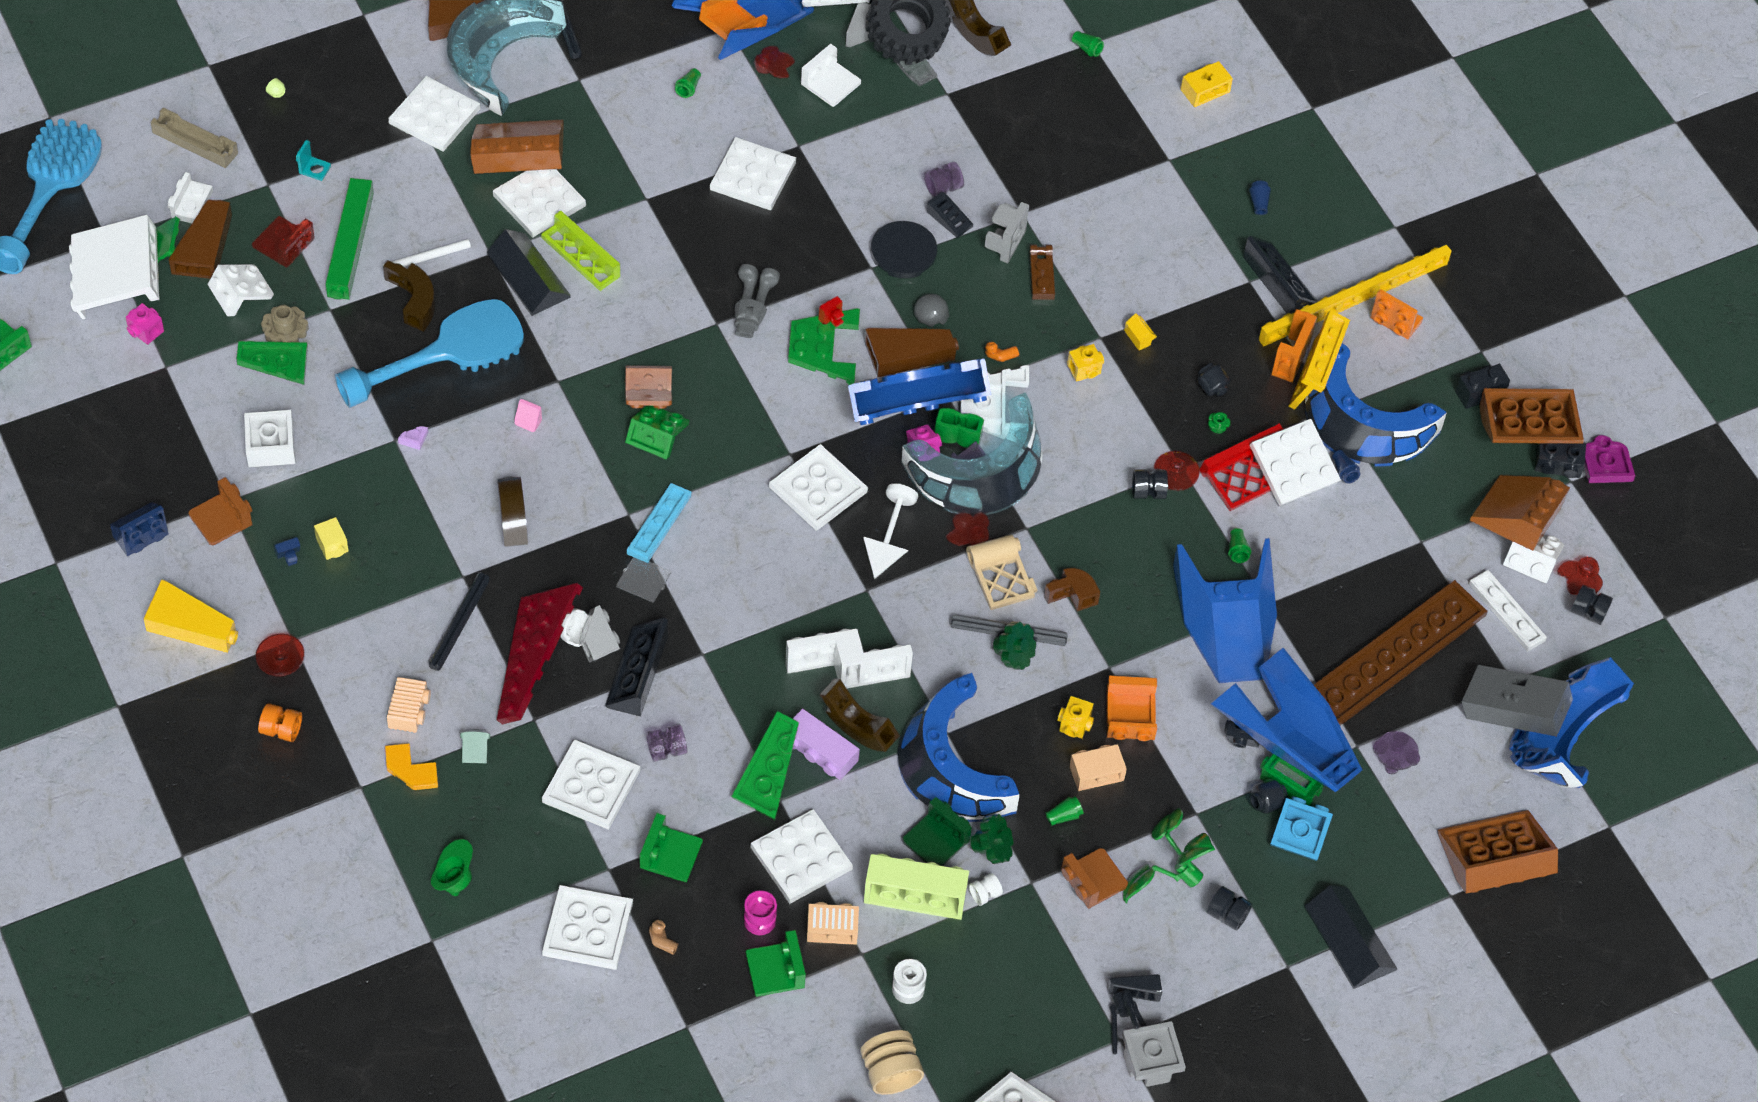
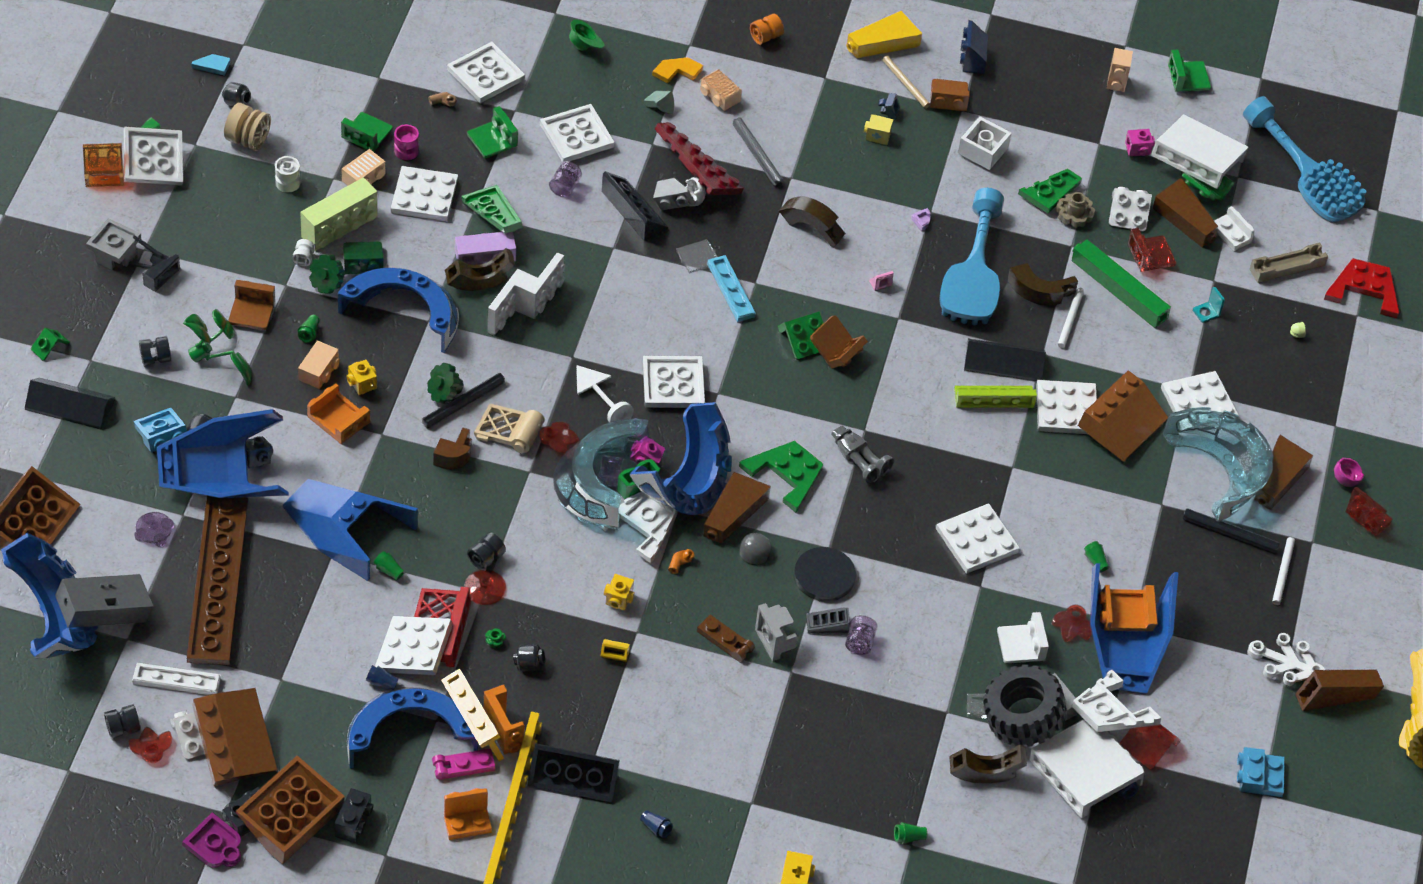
camera: 130 degrees right, 5 degrees down
(58, 389) = (1119, 69): none -> light nougat brick
(157, 79) = (1367, 280): none -> red wing
(233, 567) = (906, 82): none -> tan bar
(276, 647) = (816, 58): clear red dish -> none
(831, 312) = (803, 480): red tile -> none
(1313, 1008) = (46, 342): none -> green bracket
(1359, 359) = (463, 764): none -> dark pink plate

